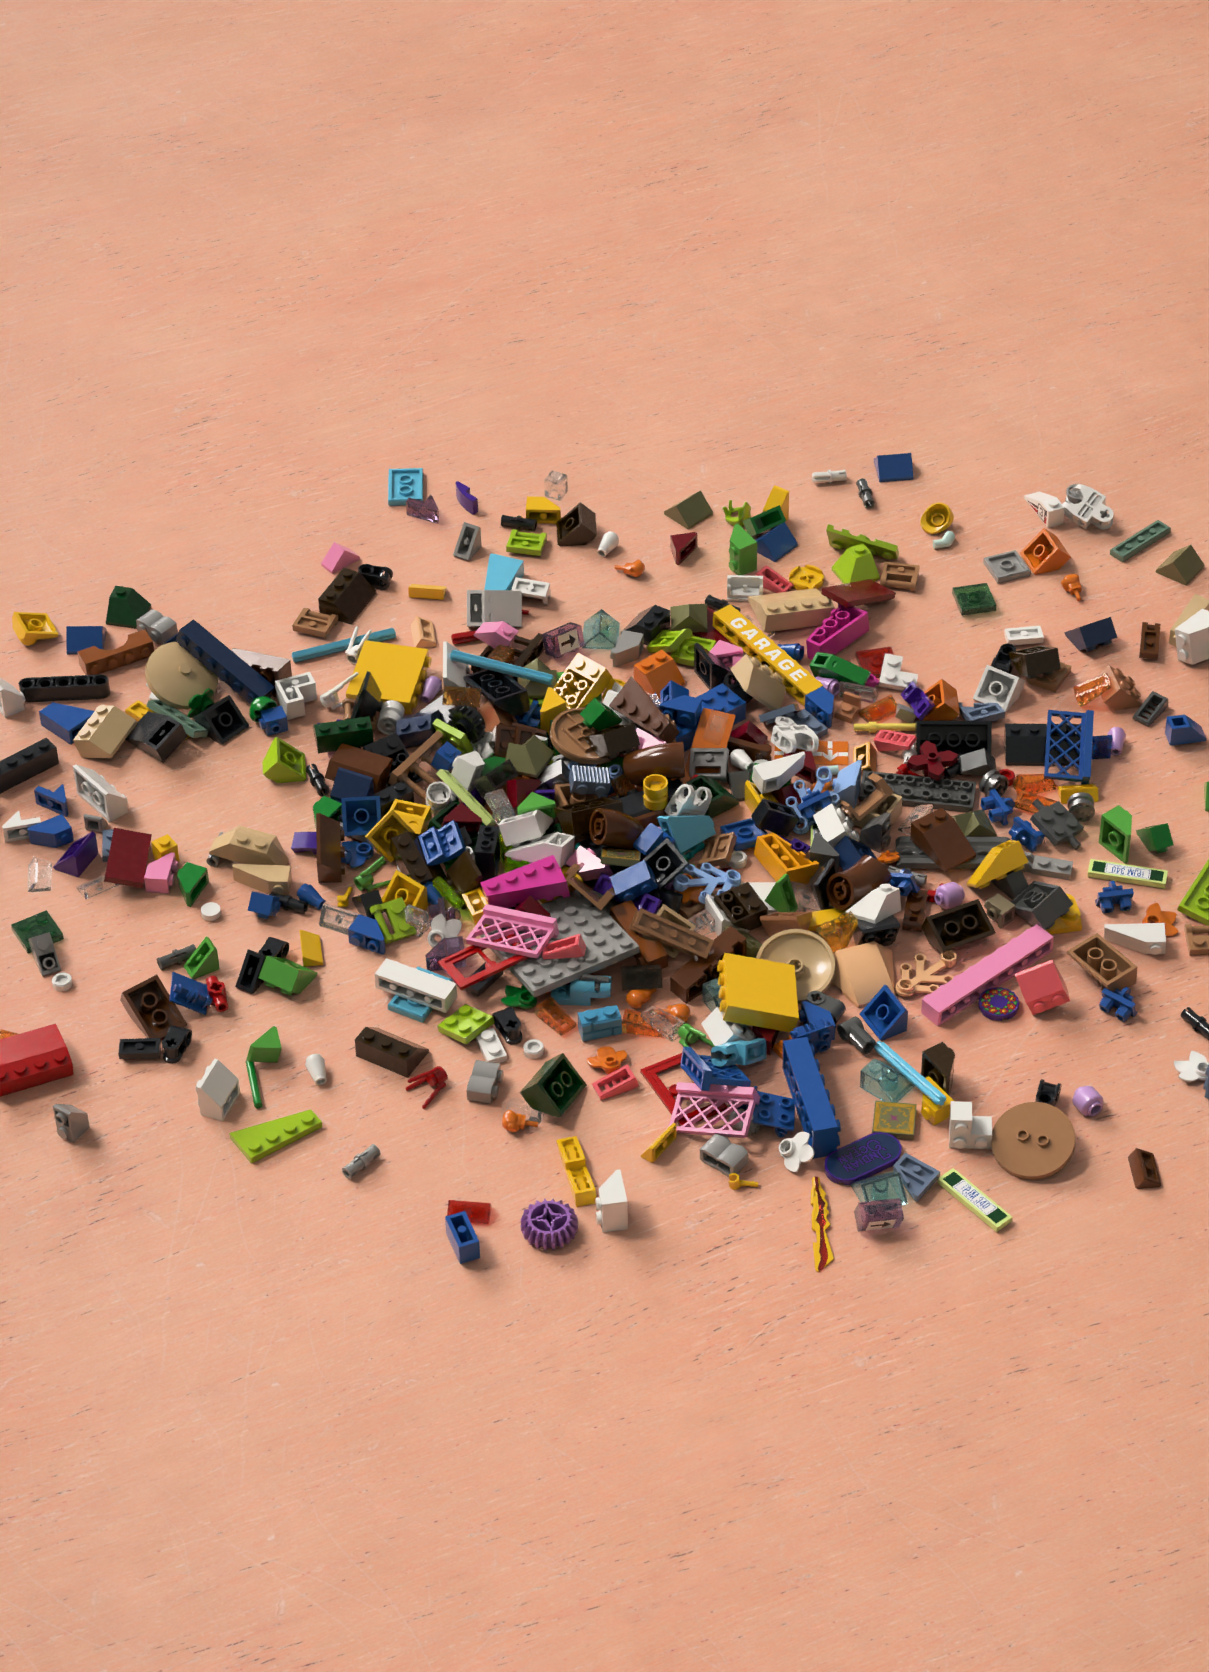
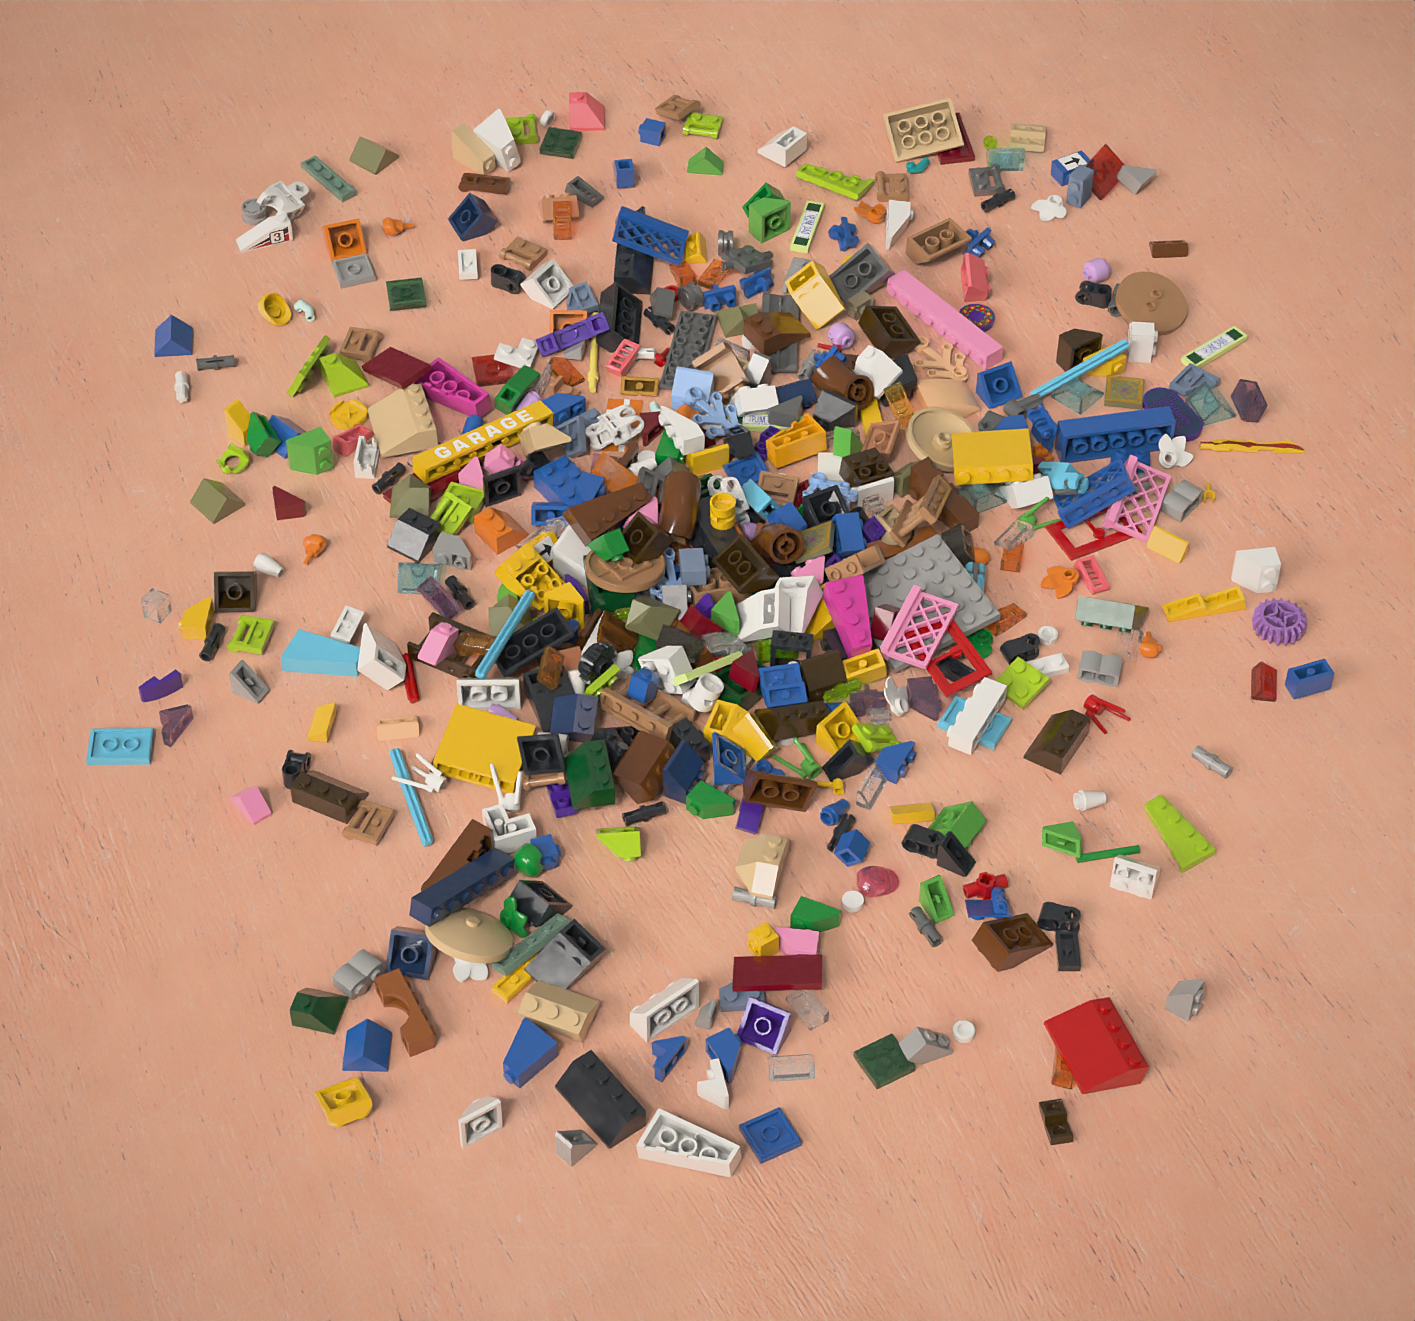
camera: 90 degrees left, 5 degrees up
(65, 688) = (467, 1053): black beam -> none
(231, 925) = (876, 881): none -> clear pink hat
(264, 877) = (809, 849): tan slope -> none
(565, 948) = (946, 572): coral slope -> none
(589, 653) = (465, 599): none -> black pin
(599, 1023) = (1018, 581): dark azure brick -> none
(679, 1010) = (996, 528): orange piece -> none
(812, 801) = (725, 408): blue hips -> none
(888, 857) = (785, 375): orange plant -> none
(931, 762) = (660, 331): dark red plant -> none
(1036, 661) = (521, 249): dark brown slope -> none

